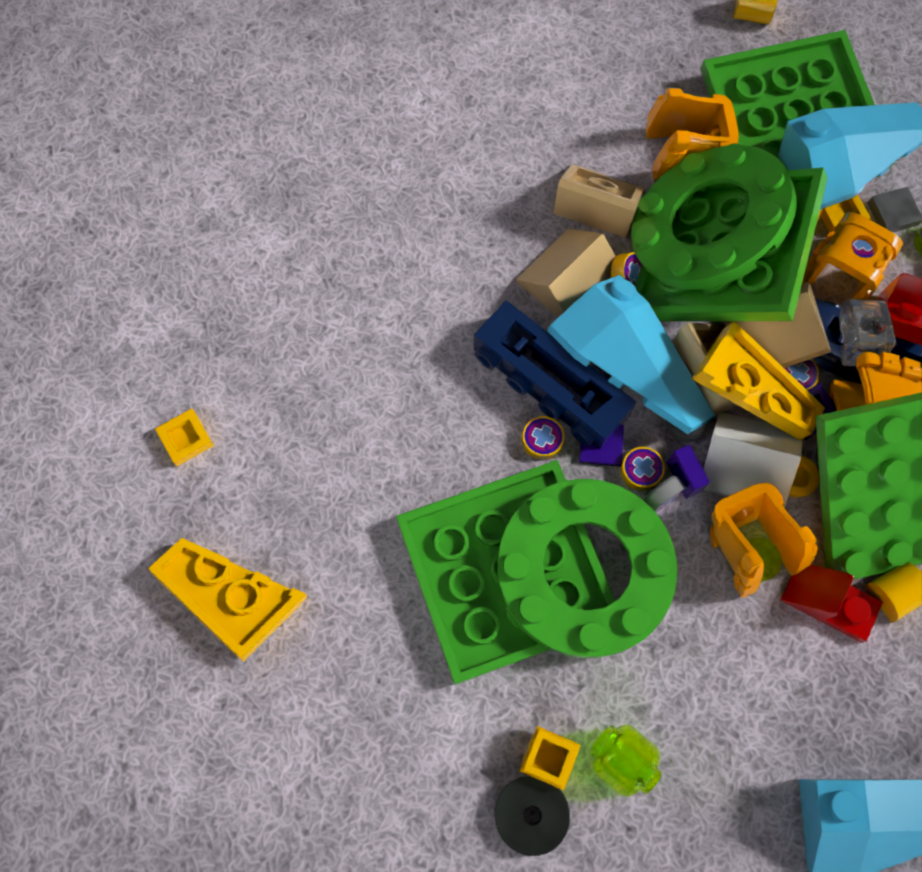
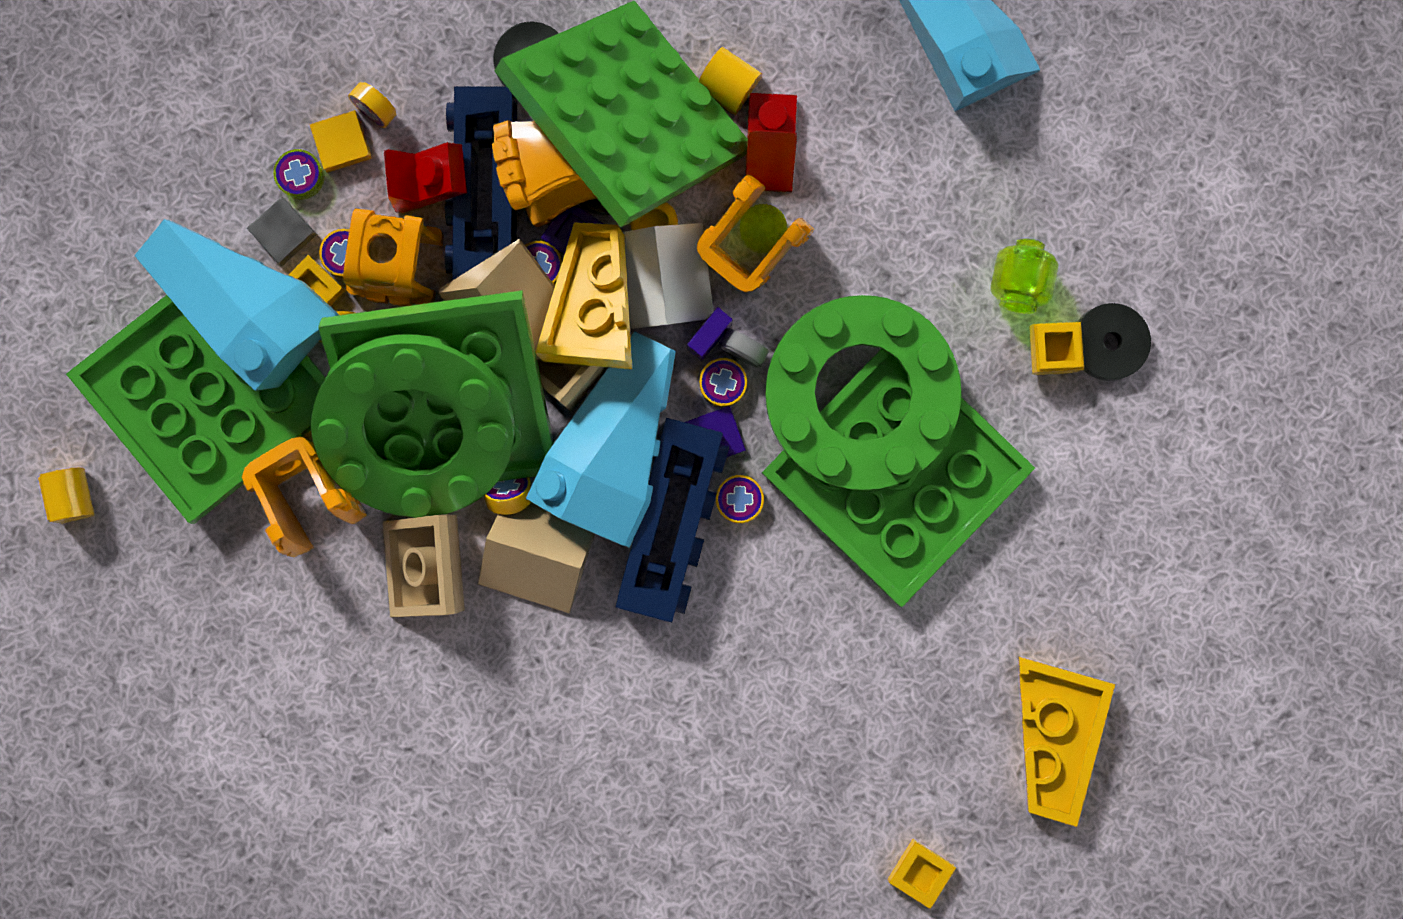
camera: 120 degrees left, 15 degrees up
(865, 328) = (476, 212): clear leg -> none

